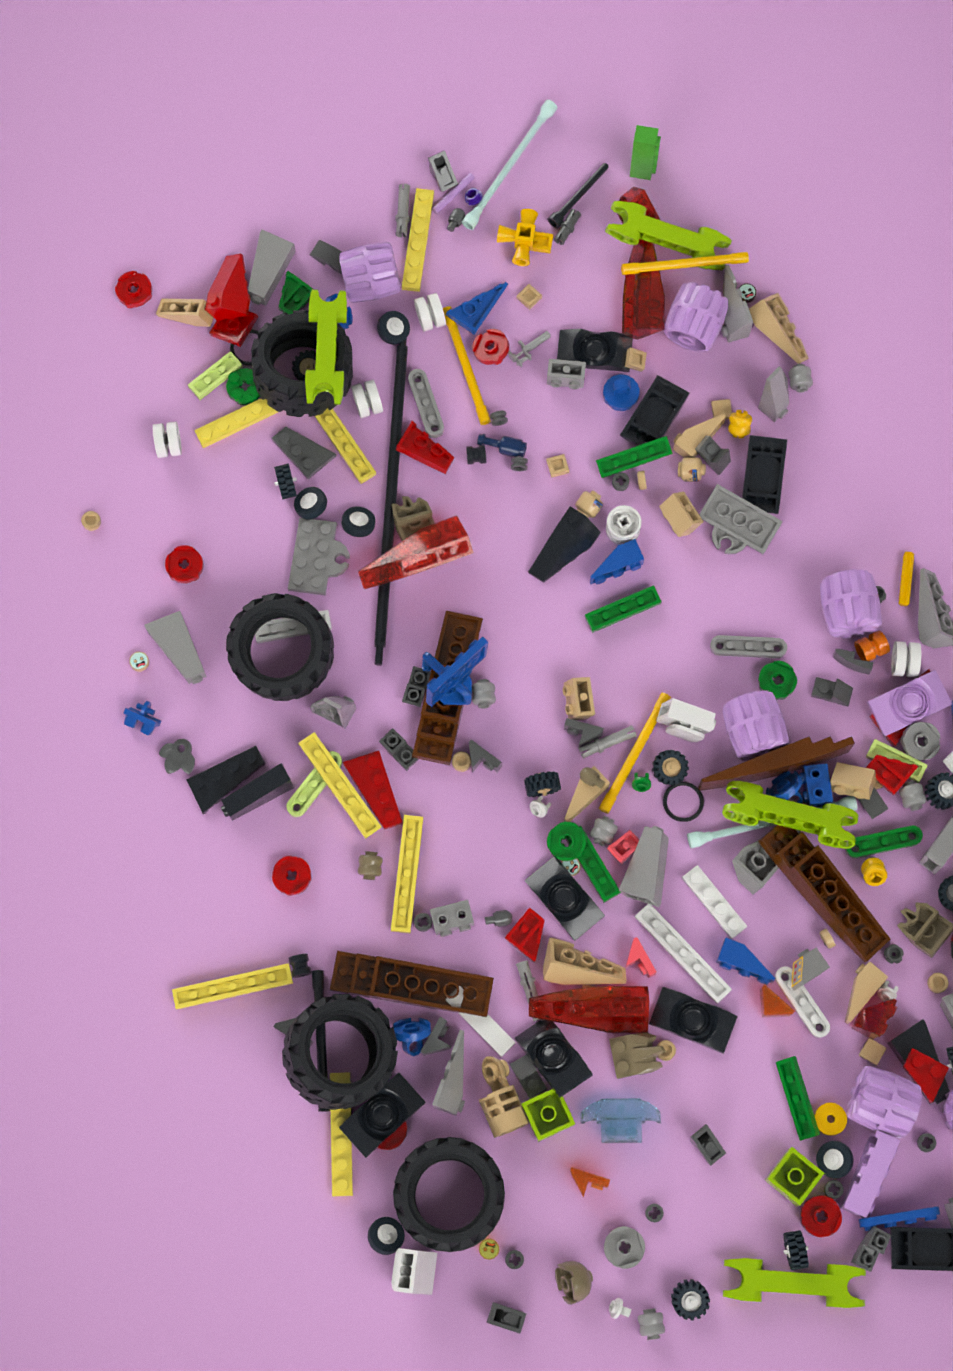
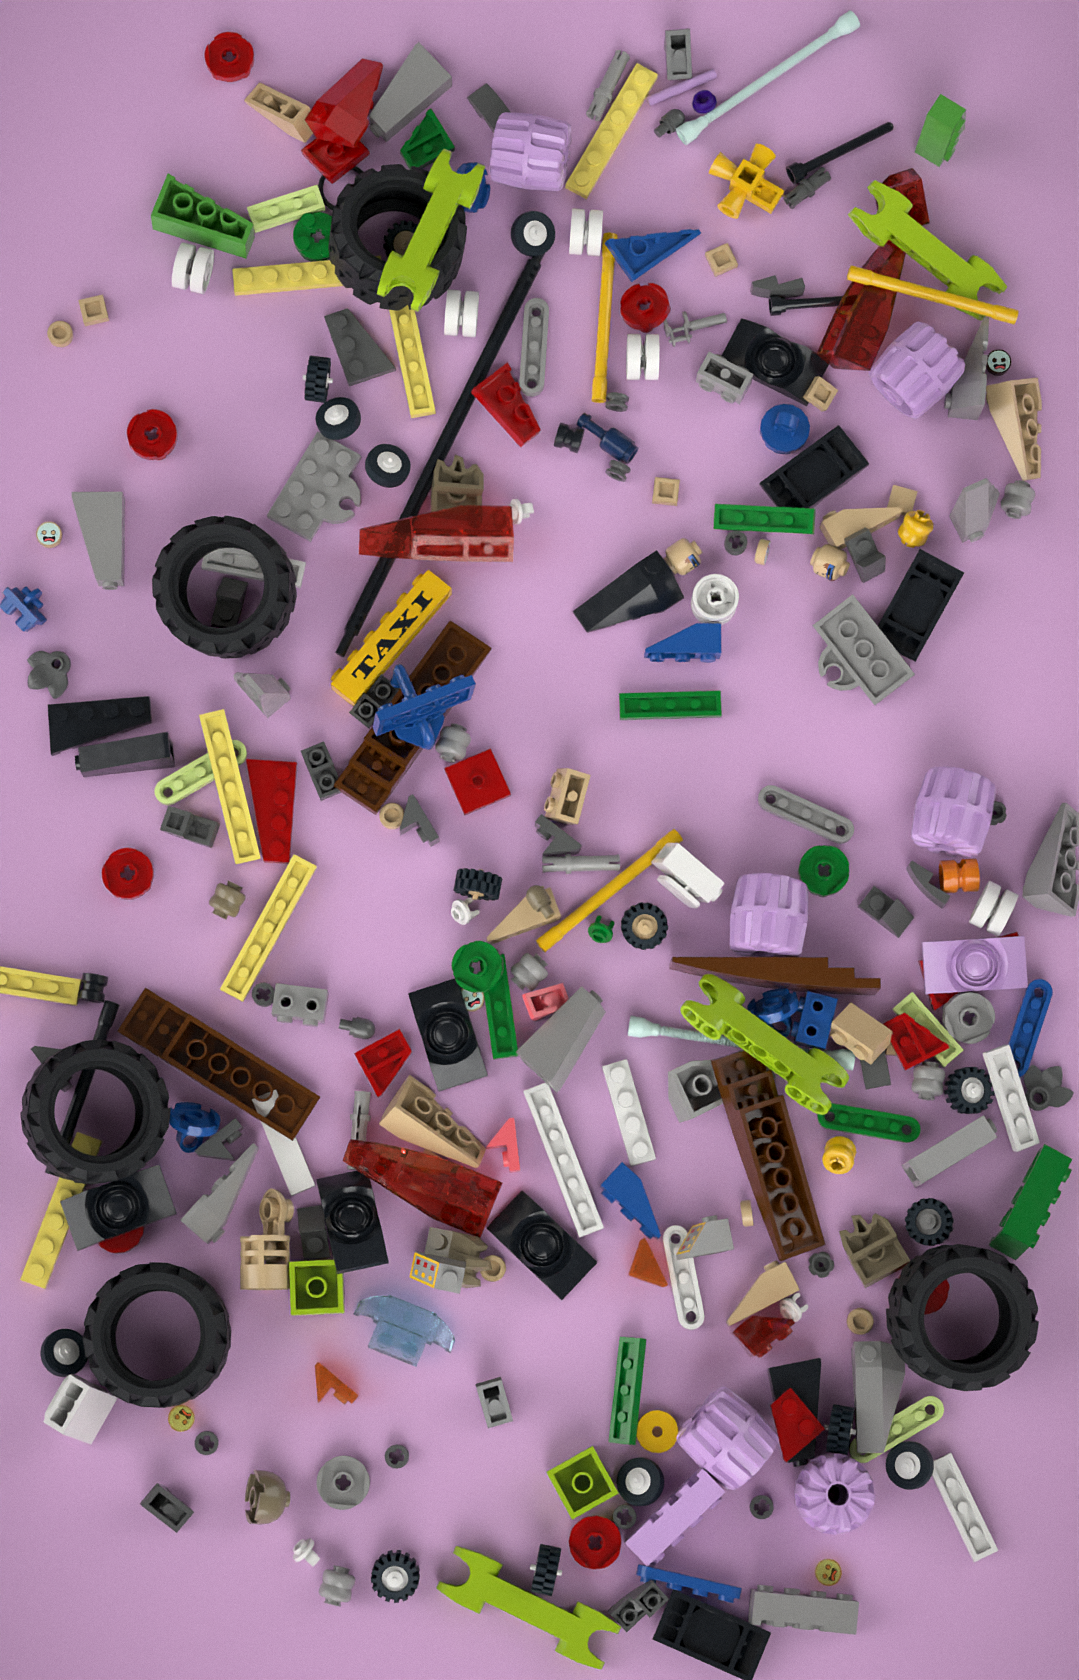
camera: 15 degrees right, 5 degrees up
(108, 495) = (93, 310): none -> tan tile
(159, 405) = (200, 220): none -> bright green wedge
(285, 658) = (229, 602): none -> dark grey slope
(322, 825) = (190, 827): none -> dark grey slope
(410, 638) = (391, 638): none -> yellow brick
(464, 516) = (520, 511): none -> white plate
(504, 380) = (642, 357): none -> white wheel
(511, 714) = (477, 782): none -> red plate
(572, 302) = (770, 287): none -> dark grey slope
(582, 311) = (779, 305): none -> black piece
(630, 1067) = (438, 1271): none -> light grey slope
(681, 514) = (792, 614): tan brick -> none
(688, 818) = (634, 996): black tyre -> none
(872, 1051) = (743, 1371): tan tile -> none
(906, 578) = (1040, 807): yellow axle -> none

